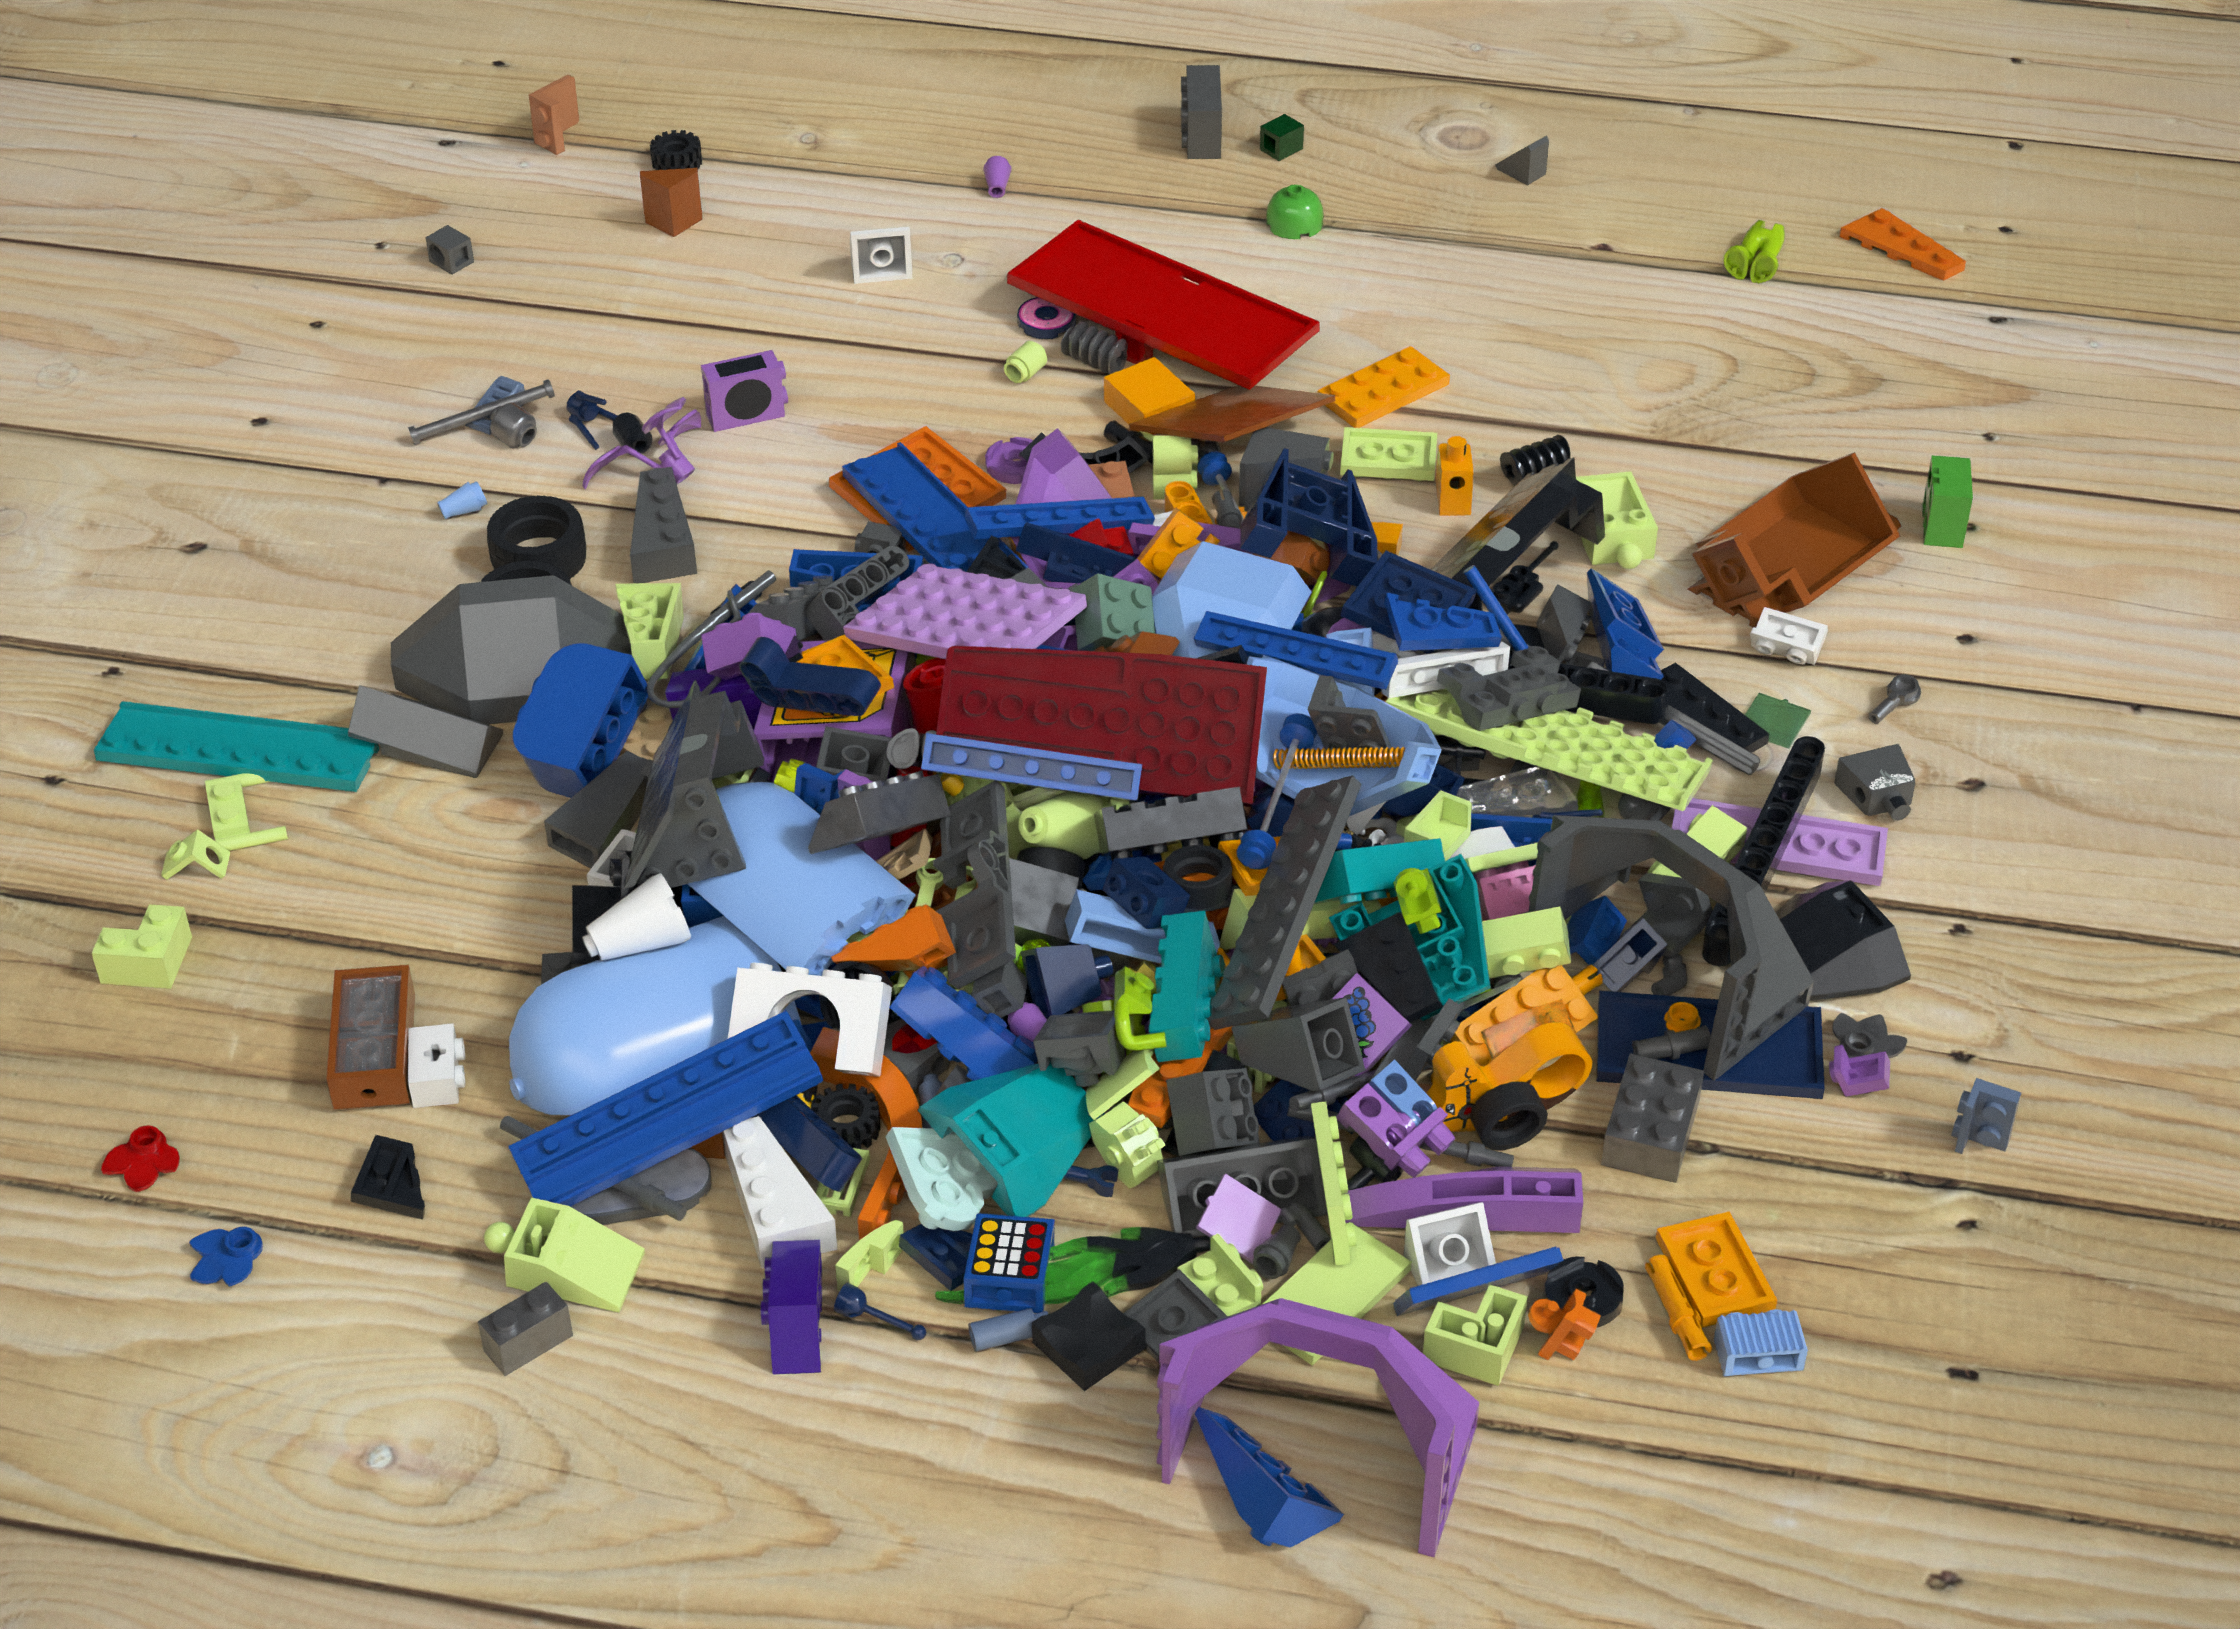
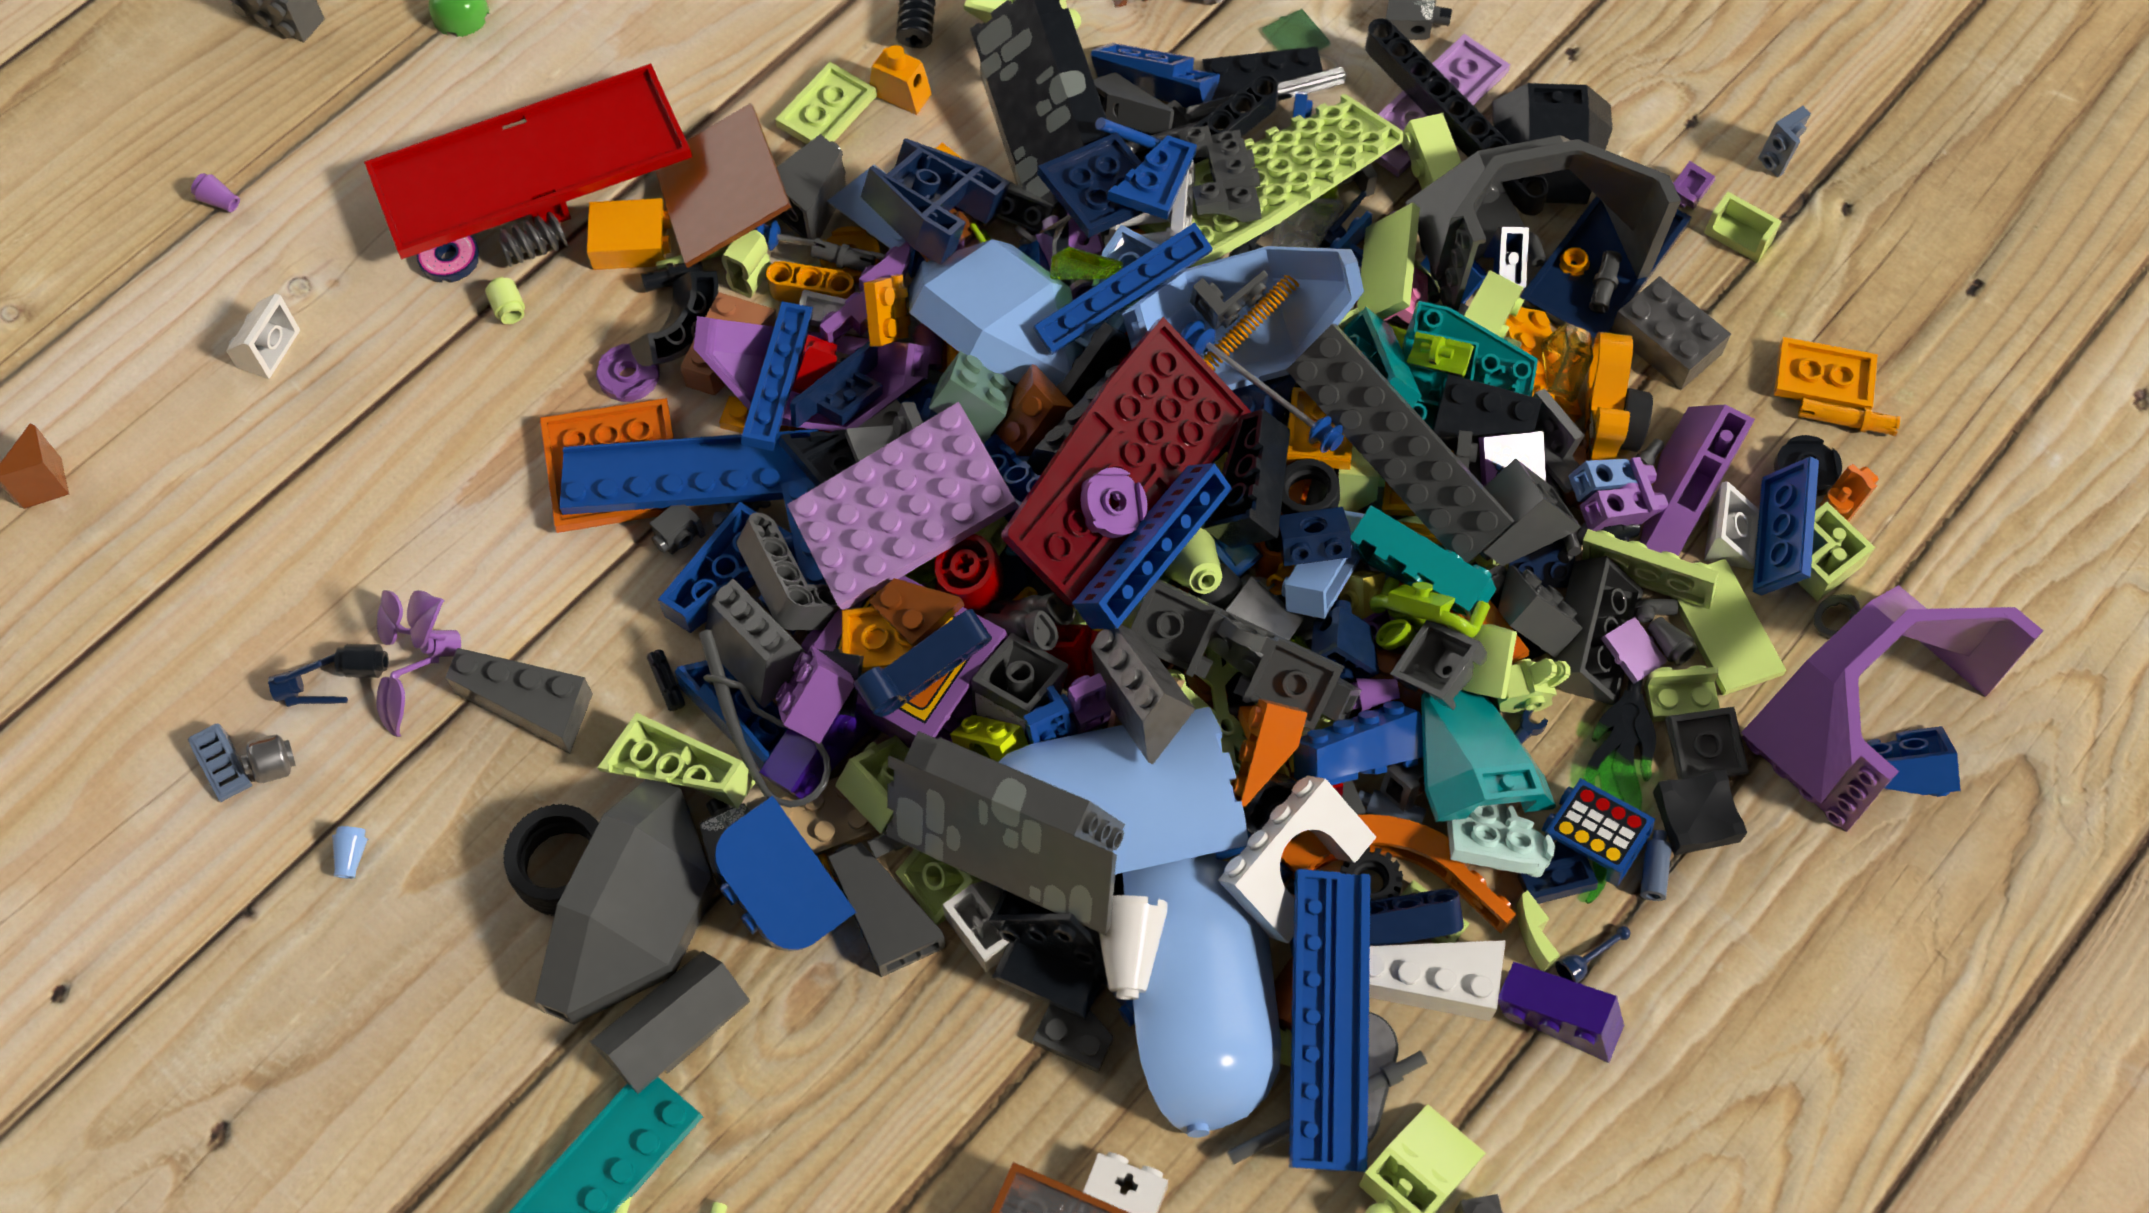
camera: 60 degrees left, 20 degrees up
(479, 412) = (227, 779): flat silver bar -> none
(538, 518) = (447, 779): black tyre -> none
(744, 390) = (384, 538): medium lavender brick -> none
(871, 655) = (914, 609): none -> dark orange wing
(1050, 697) = (1096, 505): none -> medium lavender plate
(1302, 616) = (1079, 264): none -> clear neon green slope
(1385, 387) = (733, 66): light orange plate -> none
(1760, 1343) = (1908, 386): light blue brick -> none
(1844, 1130) = (1742, 227): none -> yellowish green panel
(1867, 1036) = (1663, 161): flat silver plate -> none

